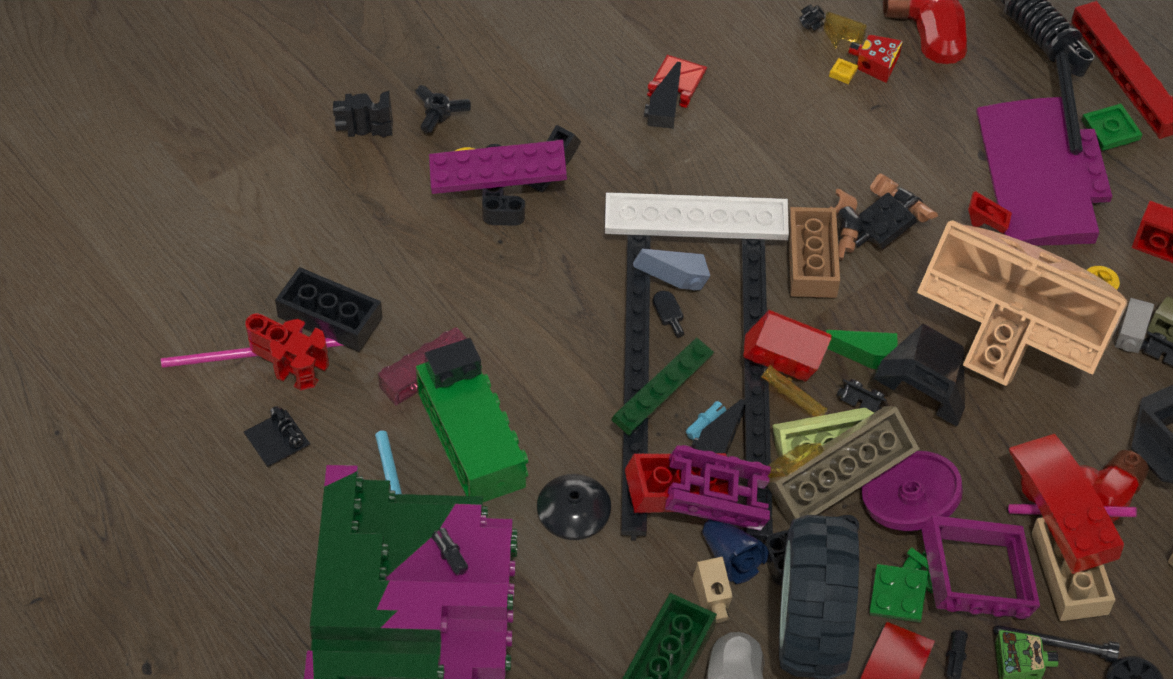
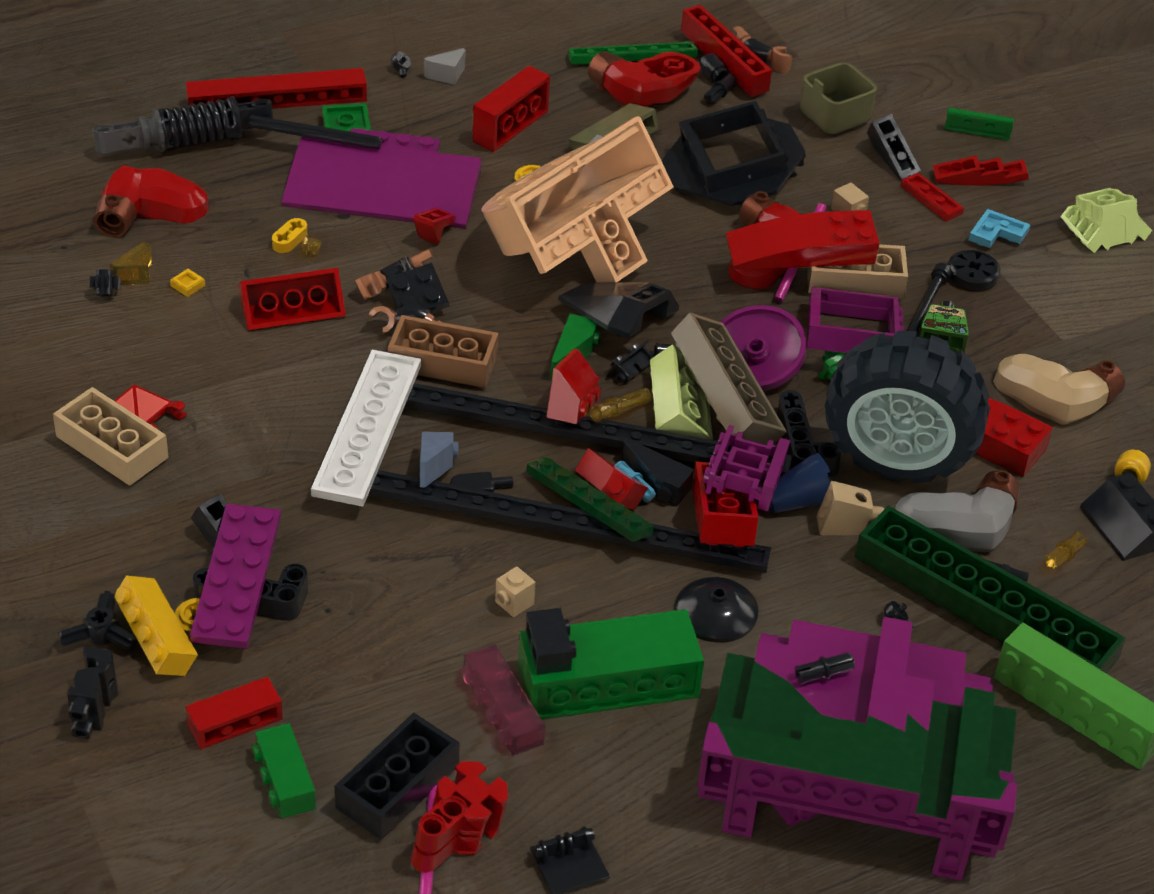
camera: 80 degrees left, 10 degrees down
(325, 243) = (284, 771): none -> green brick
(373, 202) = (234, 712): none -> red brick
(387, 460) = (640, 759): medium azure piece -> none
(442, 135) = (155, 626): none -> yellow brick
(542, 353) = (515, 591): none -> tan brick
(600, 646) = (896, 611): none -> black piece
(631, 62) = (111, 436): none -> tan brick
(664, 100) = (179, 420): black slope -> none
(689, 403) = (611, 479): none -> red slope
(794, 459) = (721, 407): clear yellow tile -> none
(845, 139) = (292, 298): none -> red slope
(877, 56) = (185, 249): red torso -> none
(922, 139) = (311, 245): none -> clear yellow hinge
(933, 122) = (289, 235): none -> yellow beam

